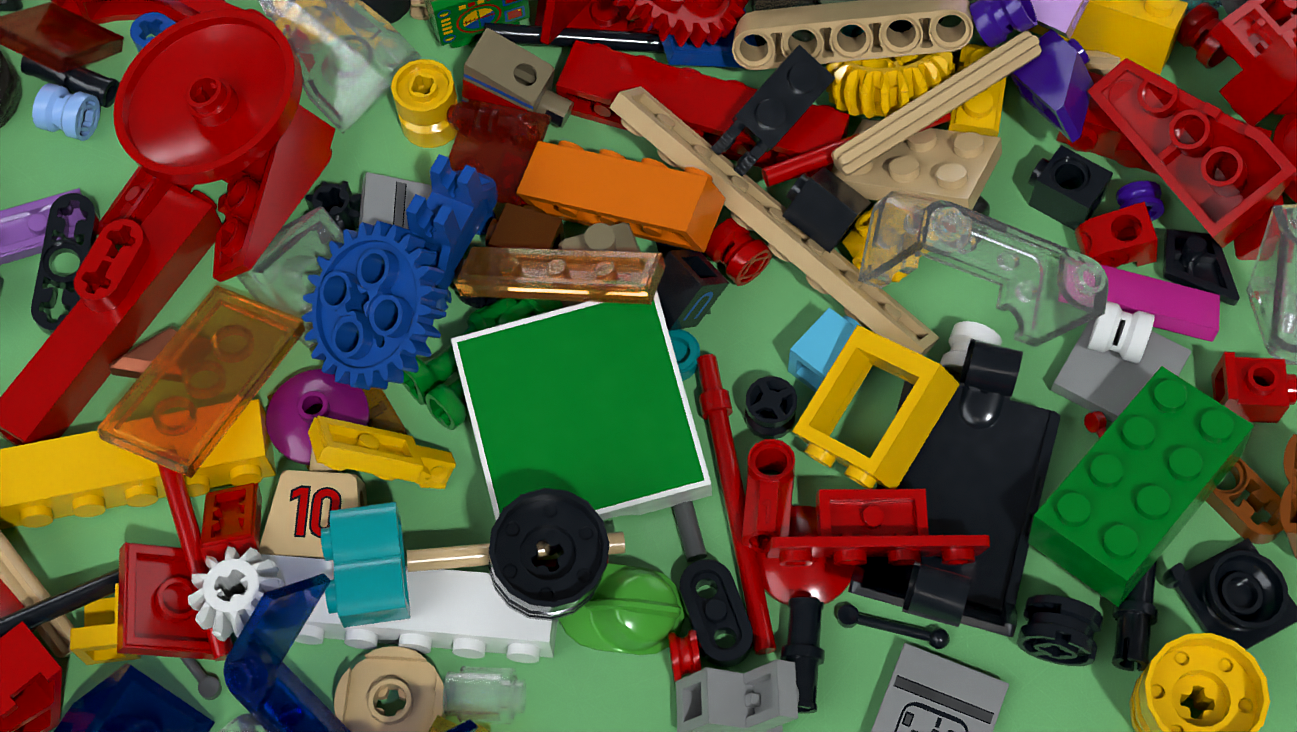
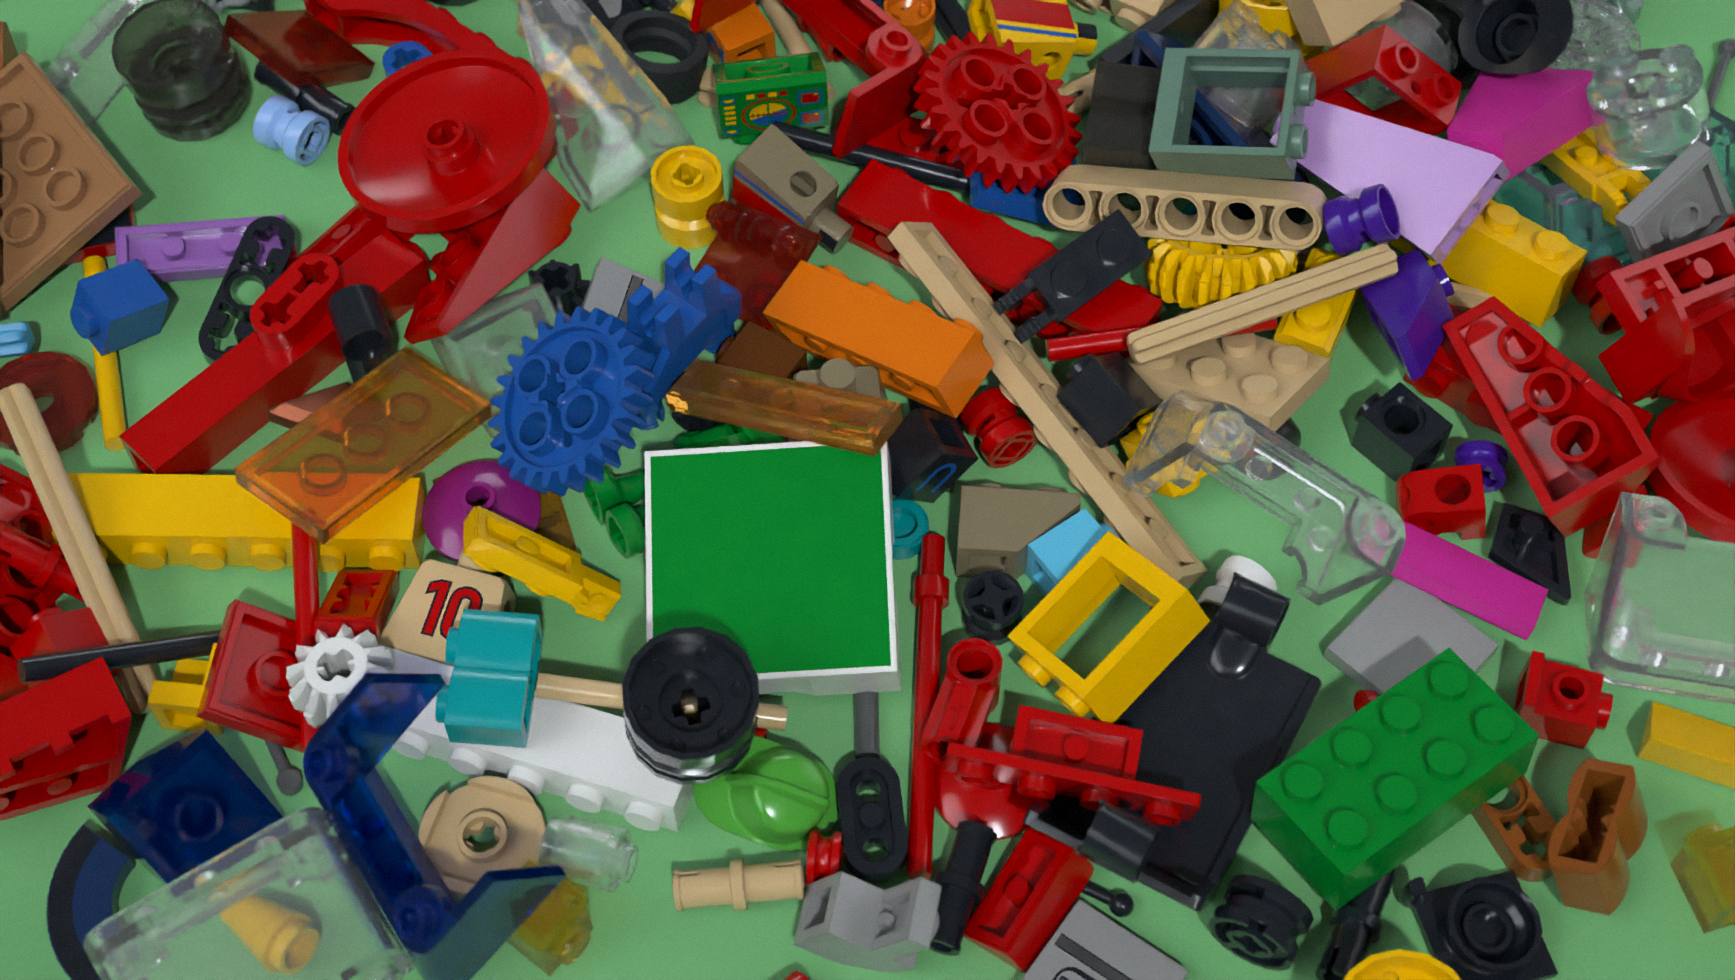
camera: 10 degrees right, 5 degrees down
(174, 279) = (361, 328): none -> black piece
(617, 693) = (738, 884): none -> tan pin
(761, 335) = (1002, 522): none -> dark tan slope
(862, 653) = (1029, 899): none -> red slope
(1132, 335) = (1428, 611): white wheel -> none

